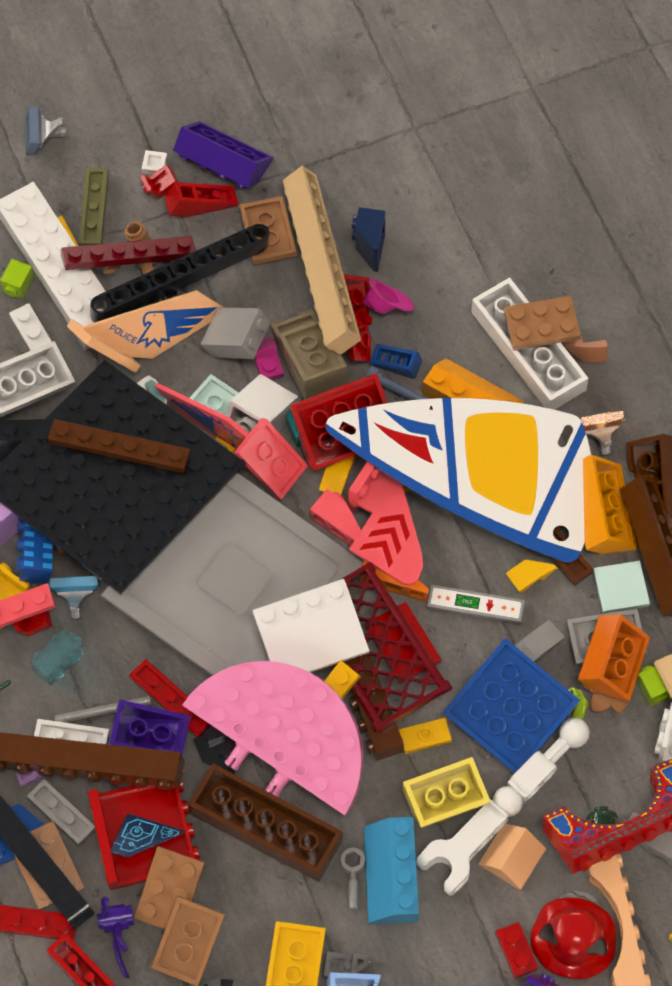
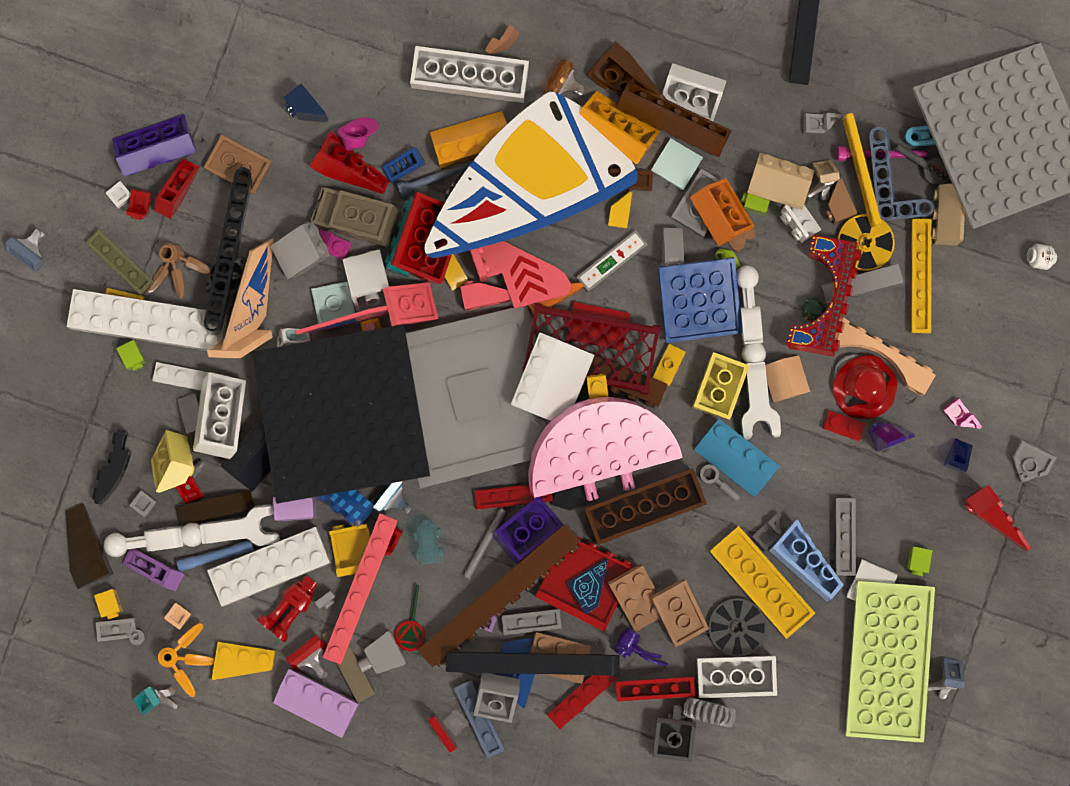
camera: 50 degrees left, 20 degrees up
(70, 731) = (487, 577): white plate -> none
(119, 446) = (326, 394): reddish brown plate -> none
(126, 252) = (181, 270): dark red plate -> none
(321, 261) = (298, 153): tan brick -> none
(542, 323) = (467, 55): medium nougat plate -> none

